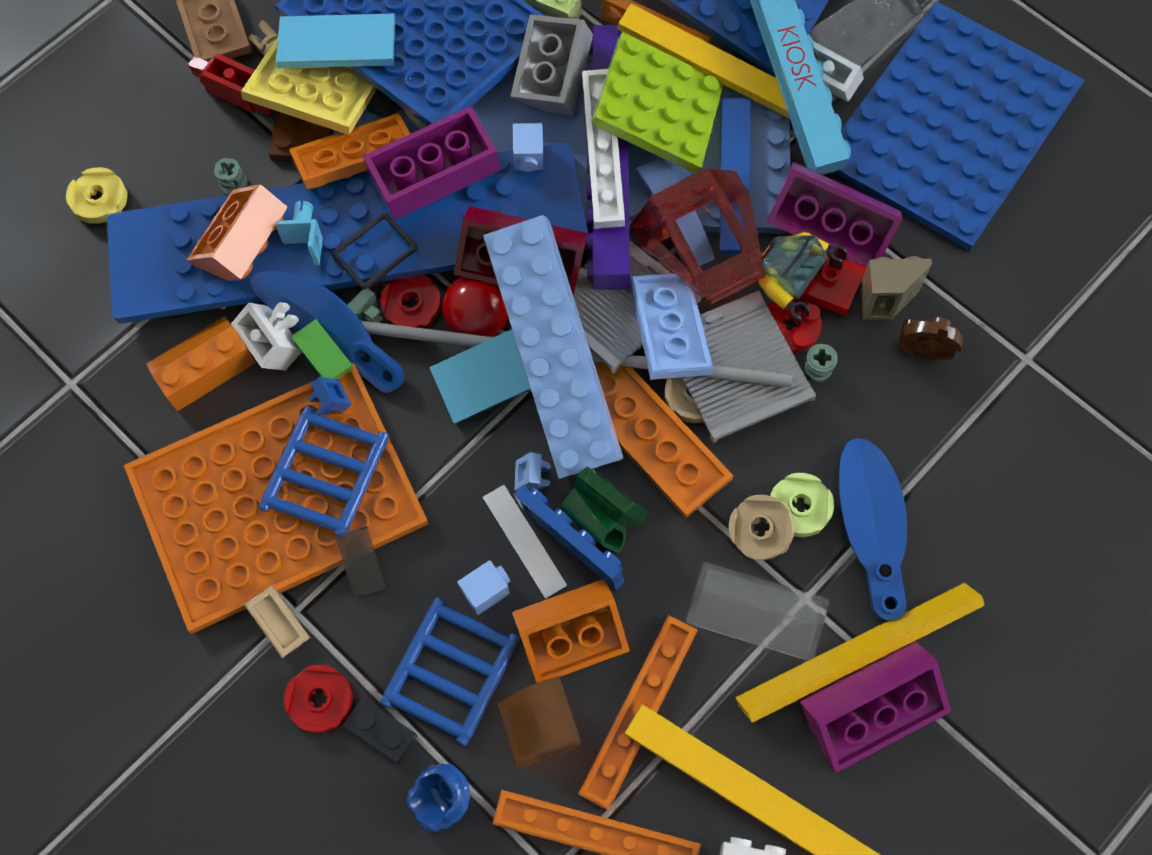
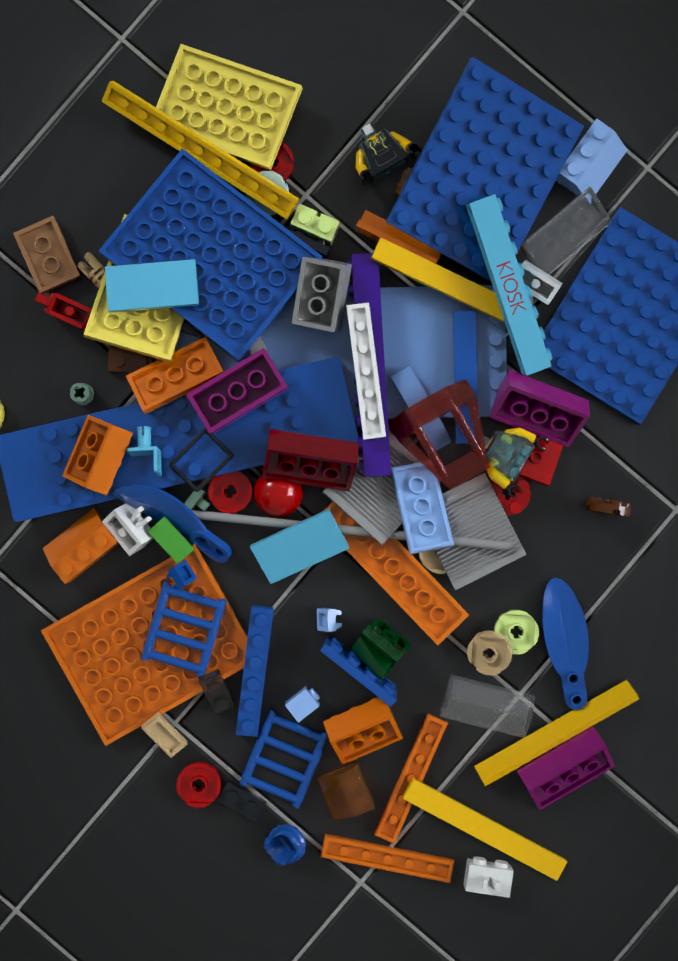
camera: 10 degrees left, 20 degrees up
(417, 535) = (254, 670): none -> blue plate
(524, 541) = (327, 667): white sticker -> none
(528, 147) = (308, 370): light blue brick -> none
(553, 346) = (339, 538): light blue brick -> none
(658, 103) = (405, 326): lime plate -> none
(828, 358) = (533, 531): sand green bush -> none
(891, 285) = (581, 469): dark tan slope -> none

